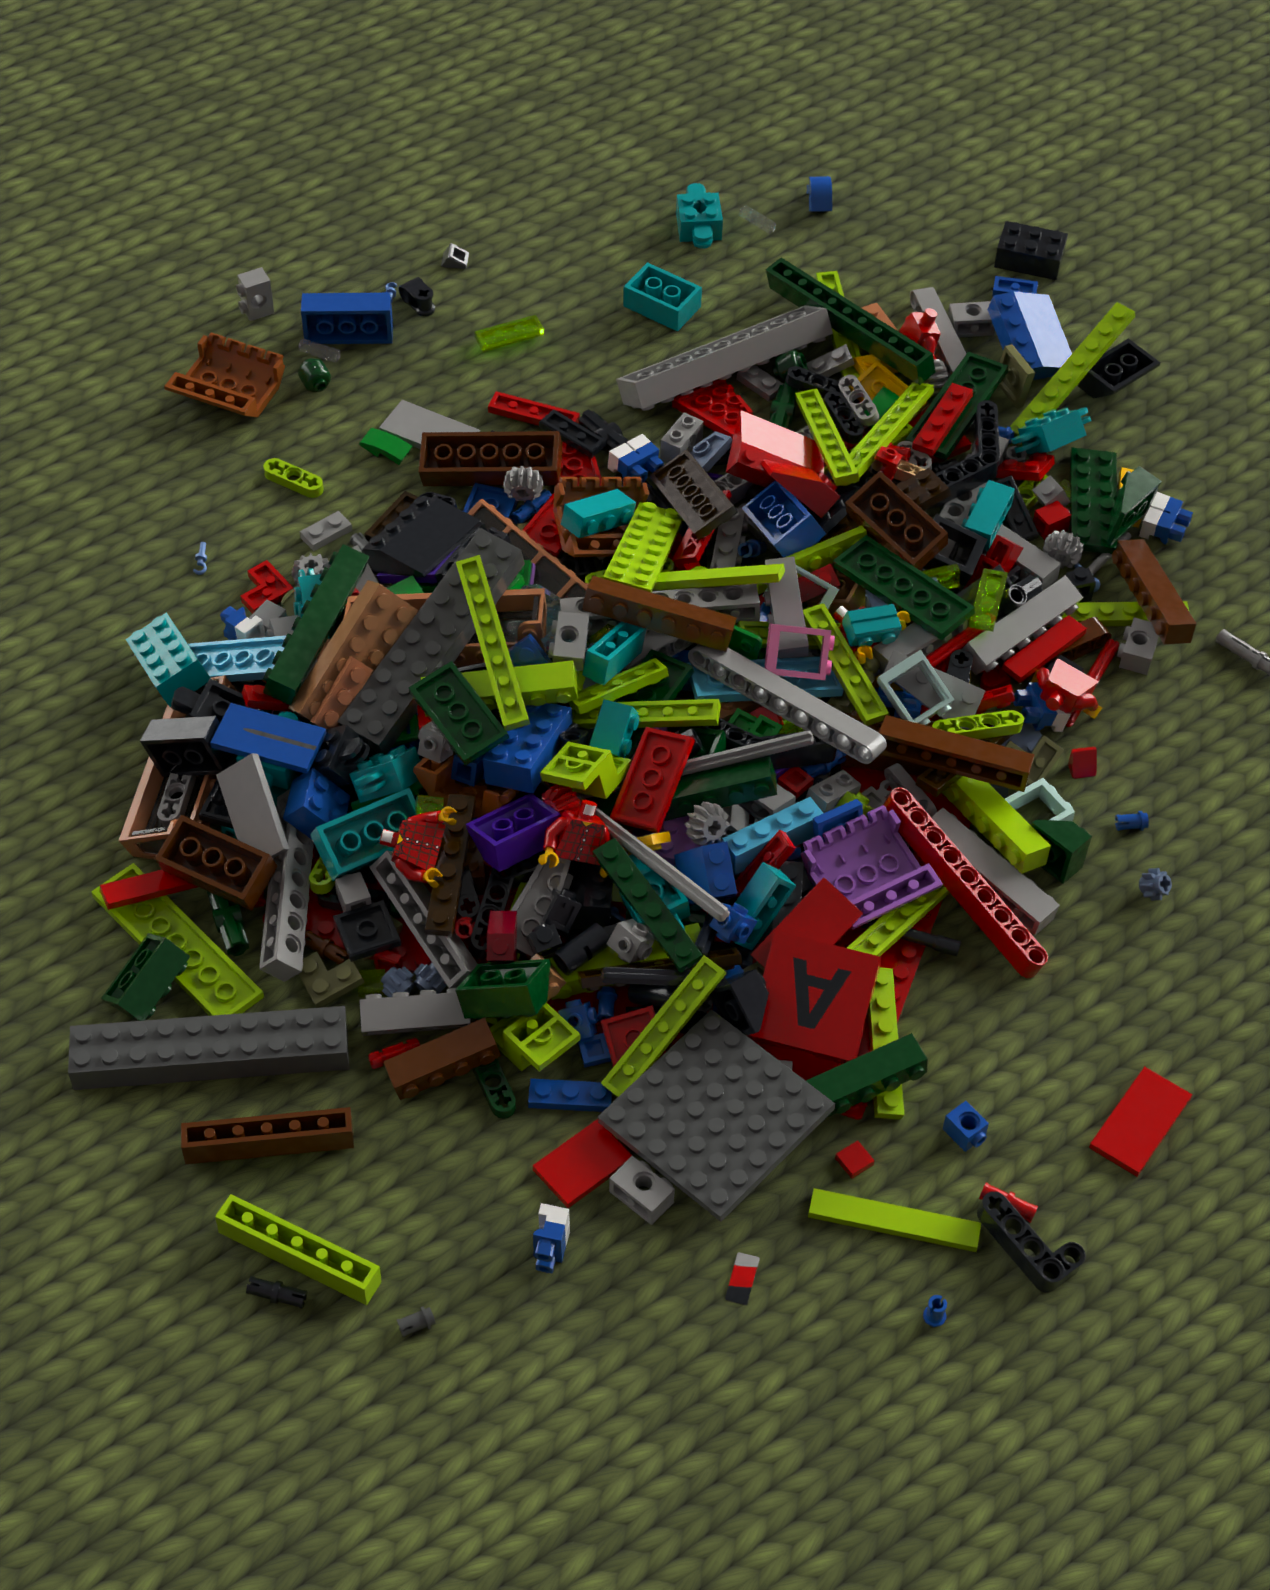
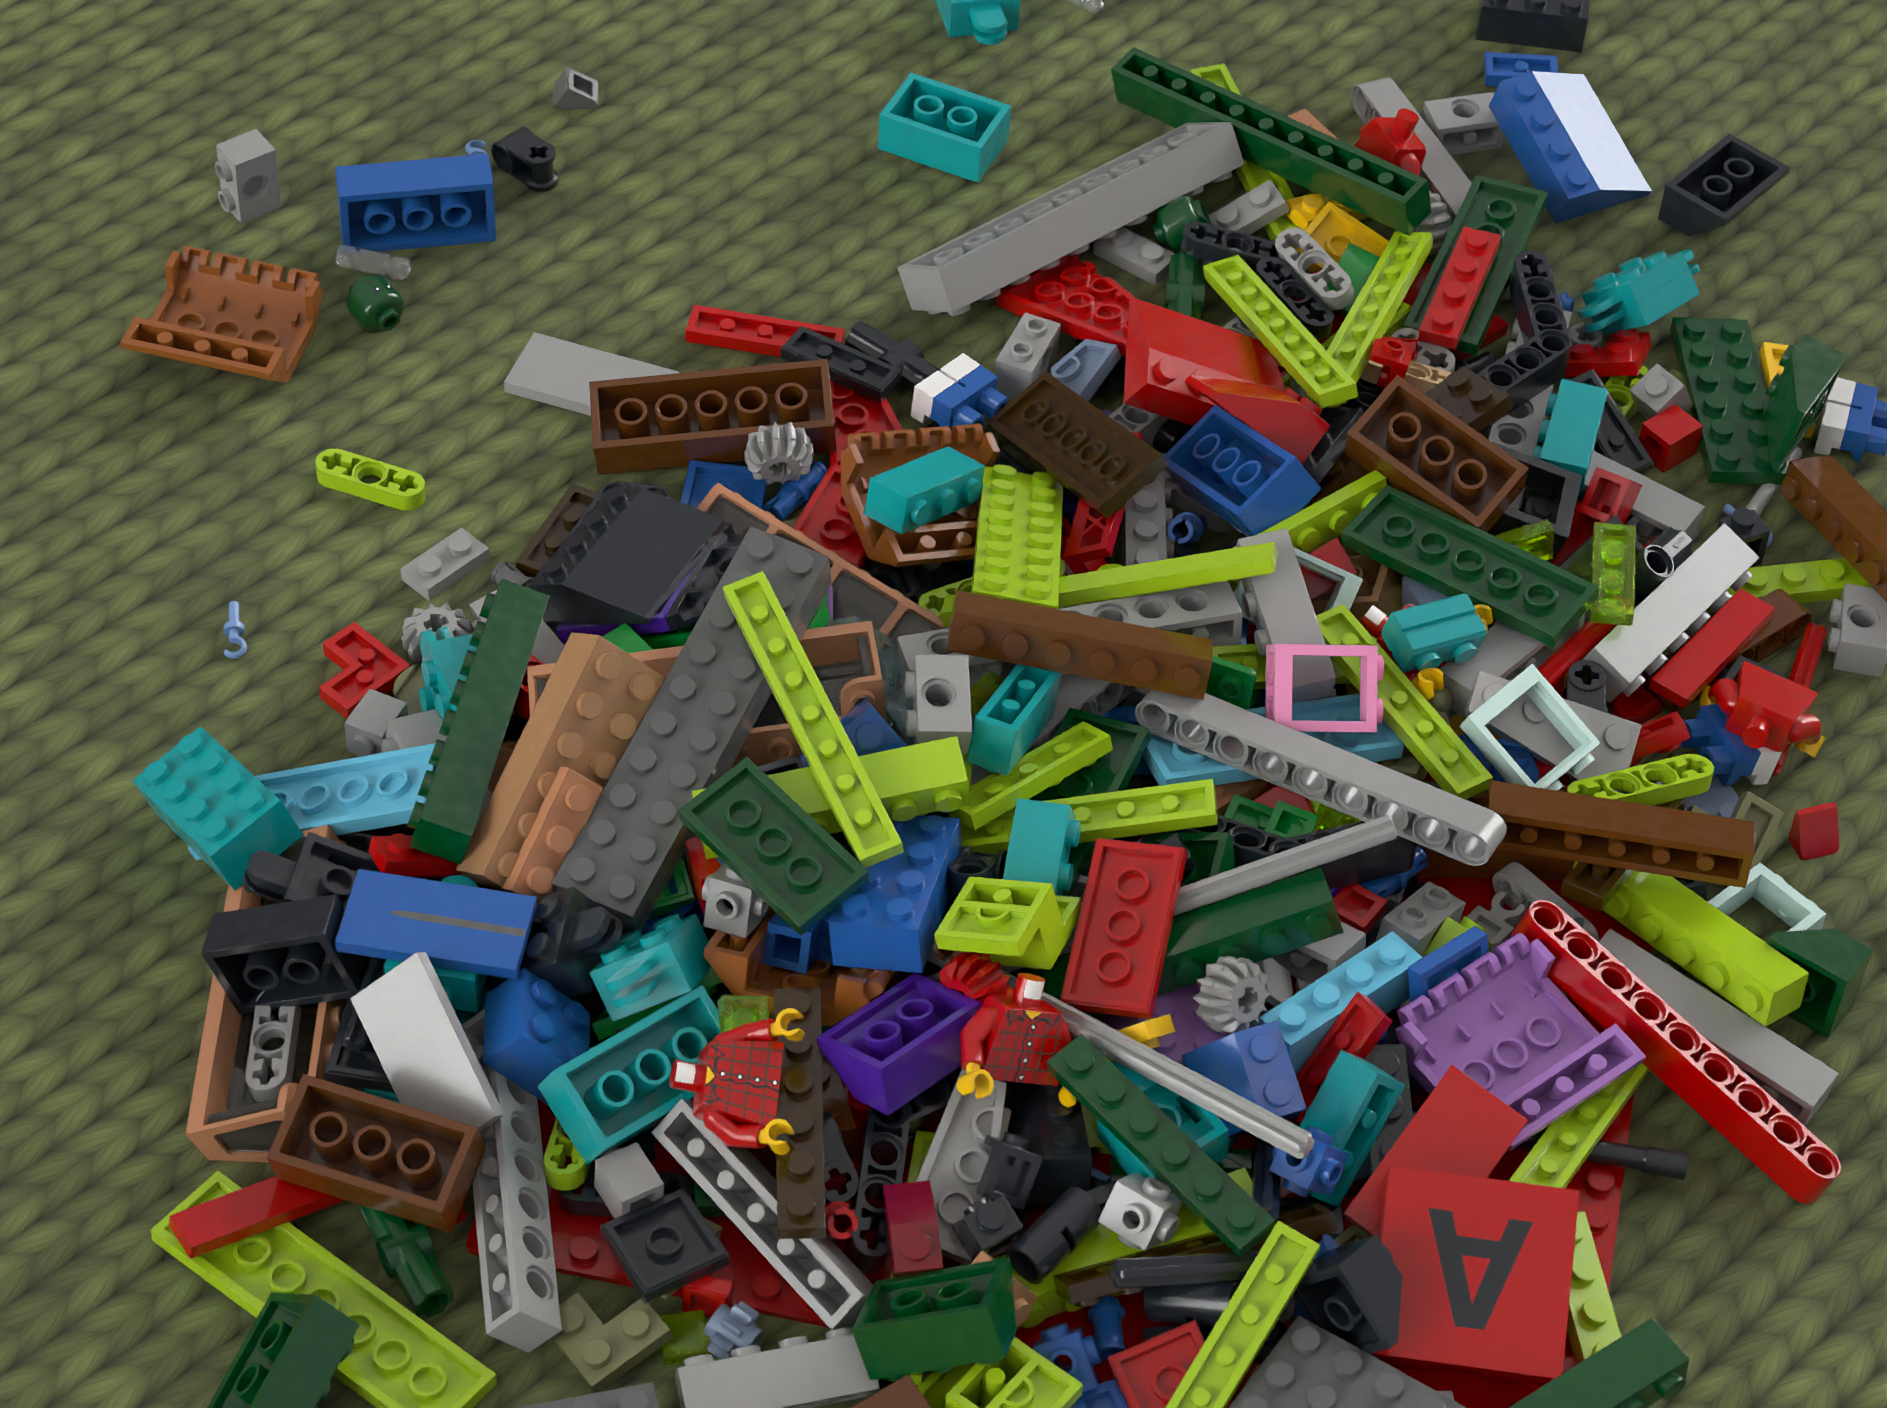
camera: 10 degrees left, 5 degrees down
(240, 626) = (334, 737): hips -> none
(325, 948) = (594, 1285): reddish brown pin -> none
(384, 443) = (511, 405): green slope -> none
(428, 978) = (787, 1317): sand blue gear -> none
(509, 333) = (695, 207): clear neon green plate -> none
(1019, 376) = (1566, 212): olive plate -> none
(1063, 548) = (1703, 480): light grey gear -> none
(1077, 365) = (1657, 184): lime plate -> none

